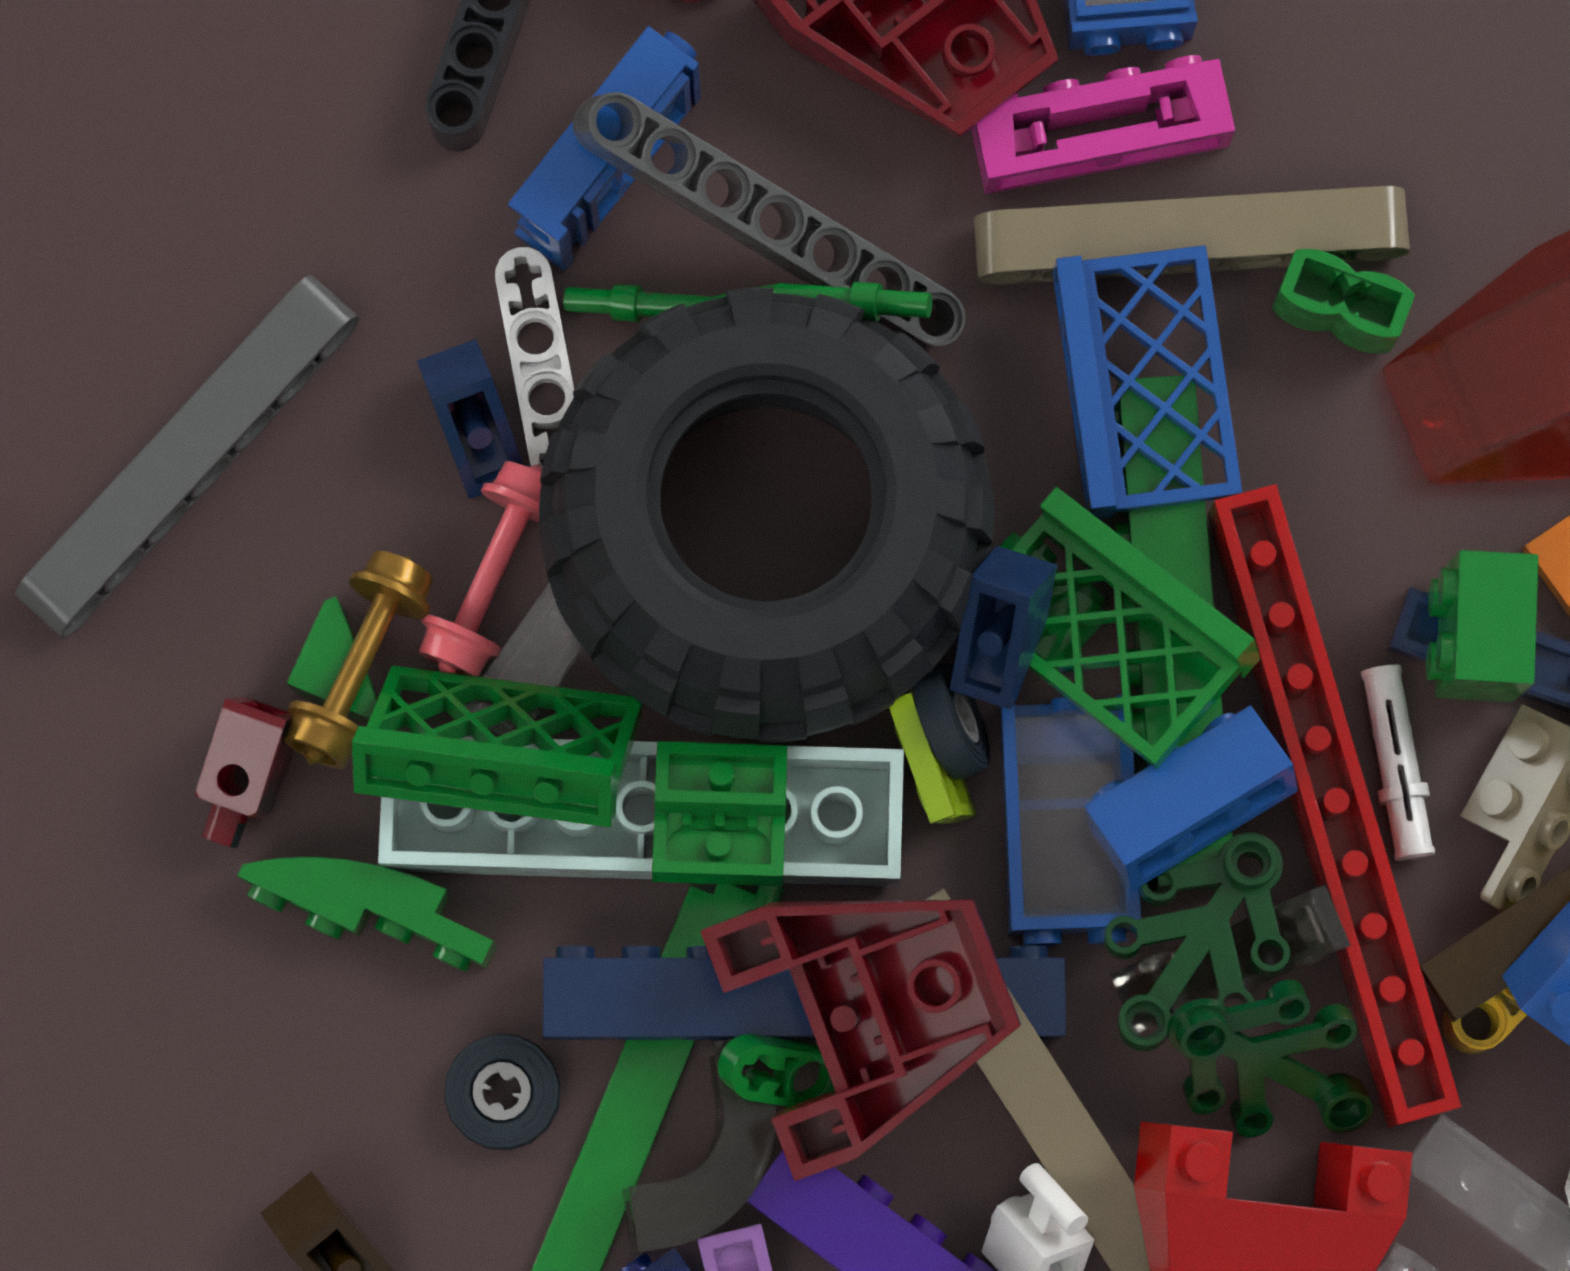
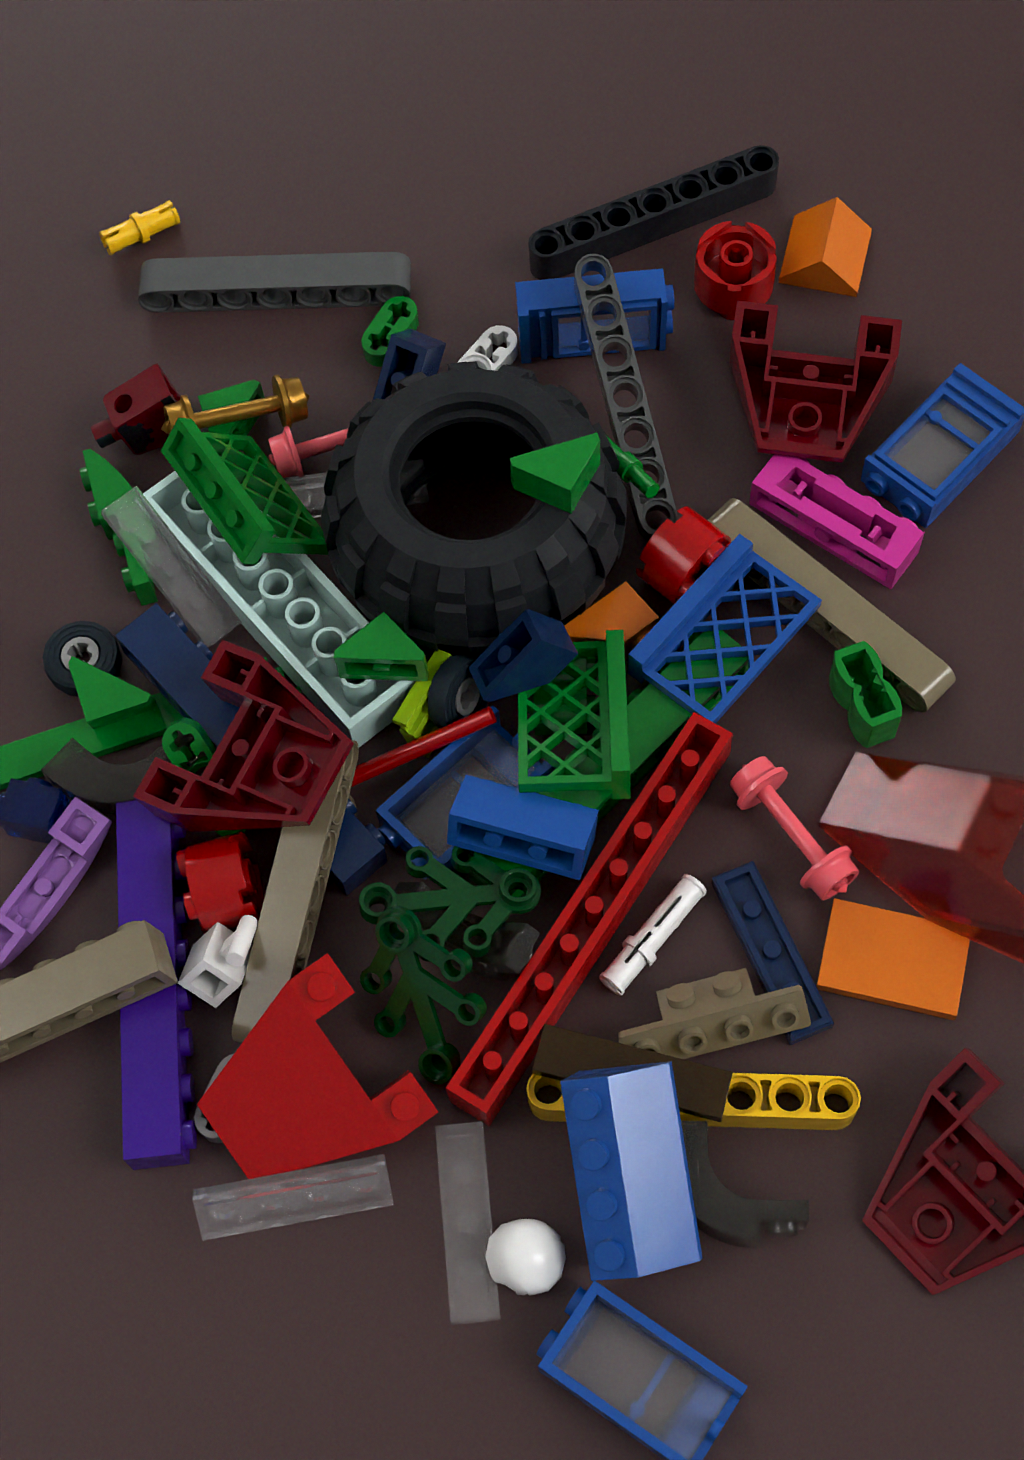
camera: 55 degrees right, 15 degrees down
(368, 386) = (383, 327): none -> green beam
(499, 902) = (170, 567): none -> clear plate
(599, 1105) = (106, 697): none -> green slope
(719, 813) = (302, 617): green slope -> none
(856, 765) = (381, 653): none -> green slope
(885, 410) = (558, 471): none -> green slope
(950, 1163) = (221, 881): none -> red brick
(984, 802) = (424, 745): none -> red bar
(1013, 334) = (681, 553): none -> red brick
(1022, 472) = (616, 611): none -> orange slope
(1335, 504) = (758, 784): none -> coral piece
(1484, 626) = (762, 897): green brick -> none

